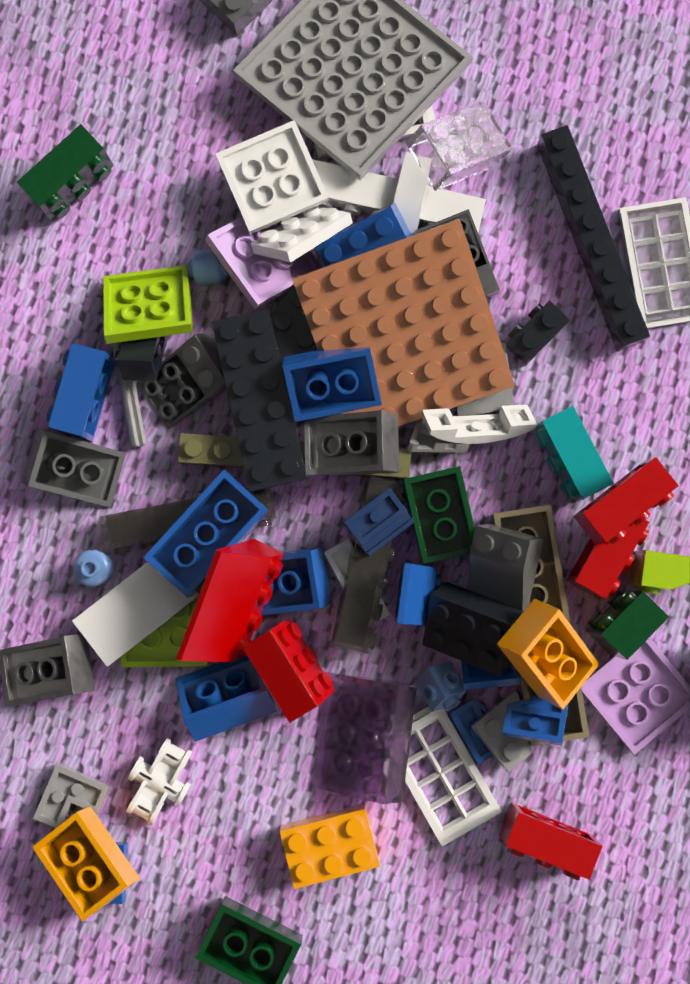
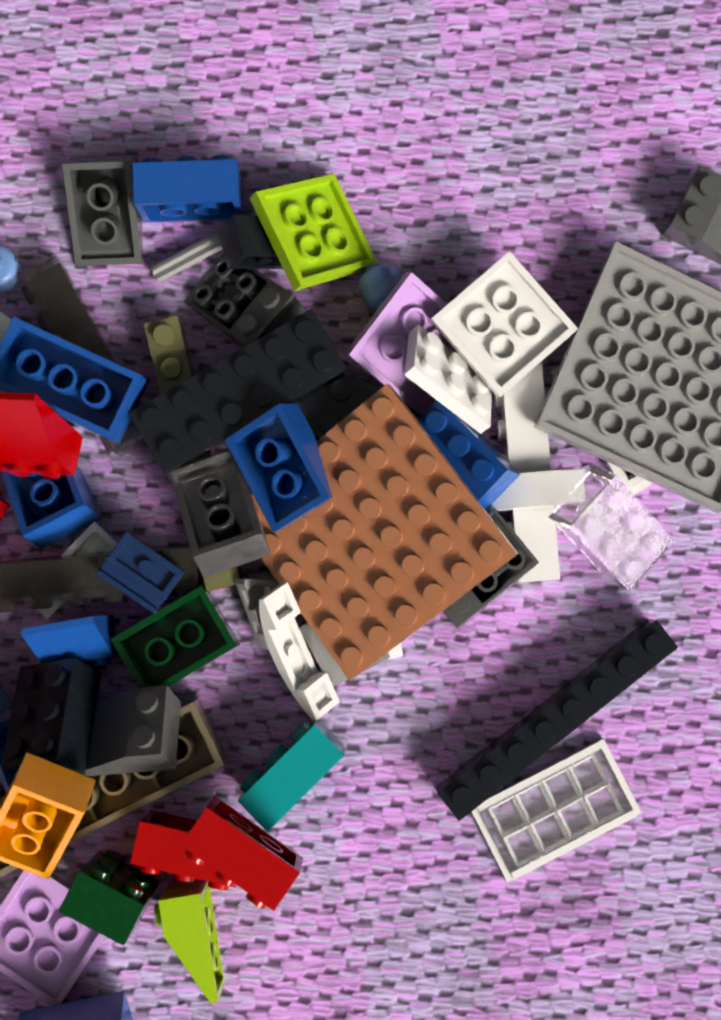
camera: 65 degrees right, 0 degrees up
(66, 173) = (434, 92): dark green brick -> none
(542, 327) = (424, 688): black brick -> none

